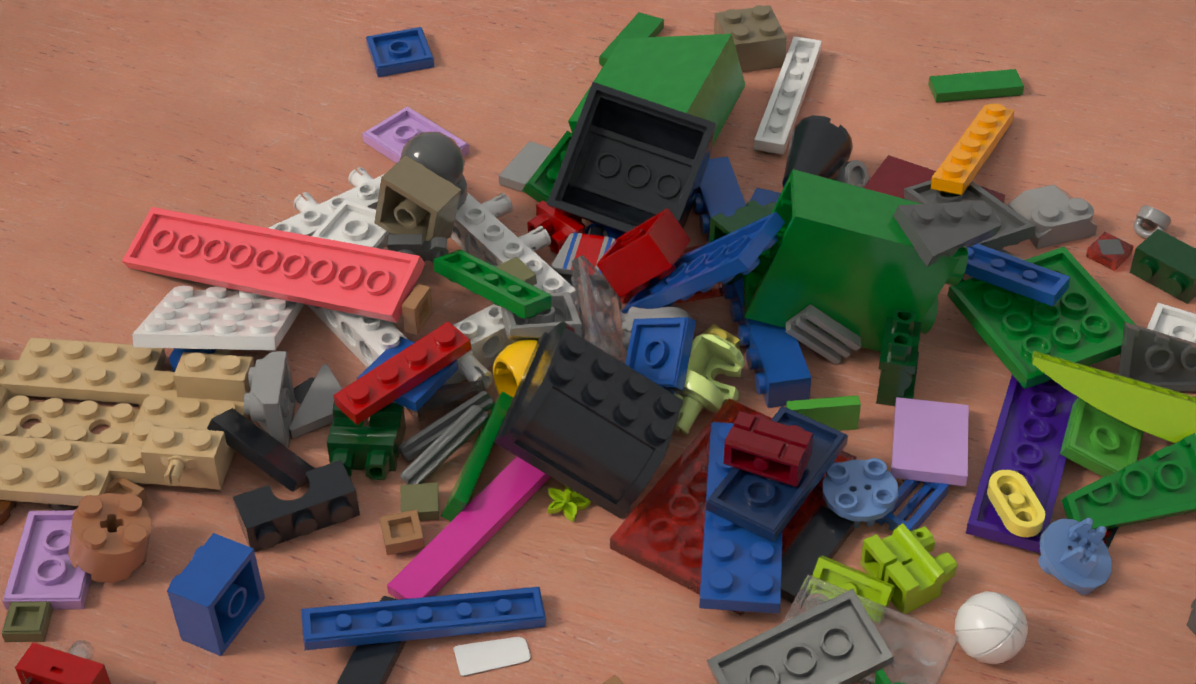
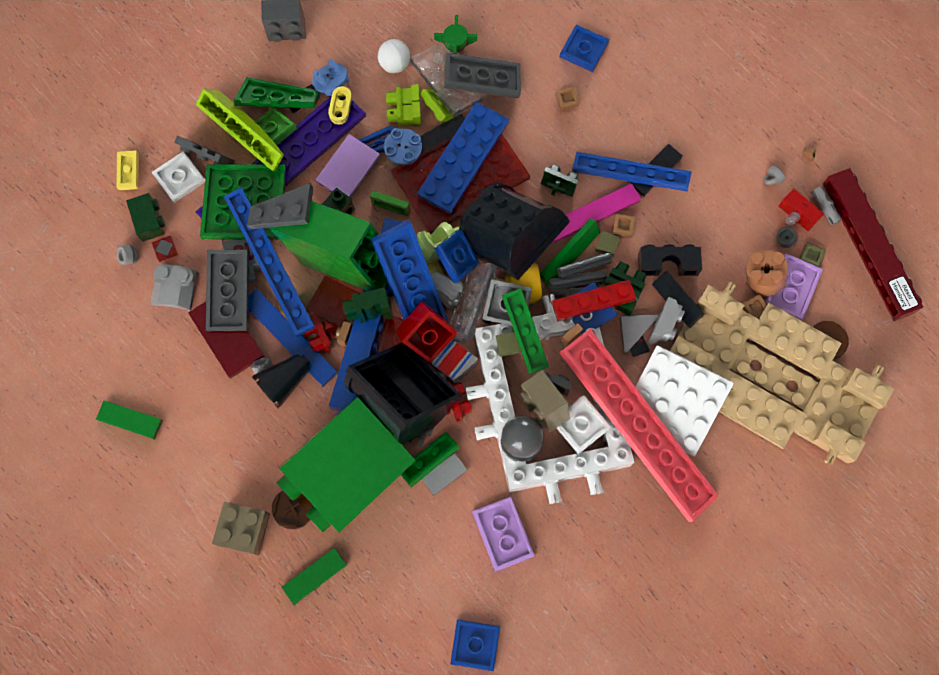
camera: 155 degrees left, 30 degrees up
(83, 625) = (787, 237): none -> dark grey tile
(216, 594) = (724, 214): blue brick -> none
(490, 655) = (605, 149): white sticker -> none
(551, 546) = (559, 182): none -> dark green hips
(767, 504) = (439, 160): dark blue tile -> none
(768, 448) = (442, 159): dark red brick -> none
(787, 95) = (248, 464): white plate -> none
(972, 149) = (181, 347): light orange plate -> none

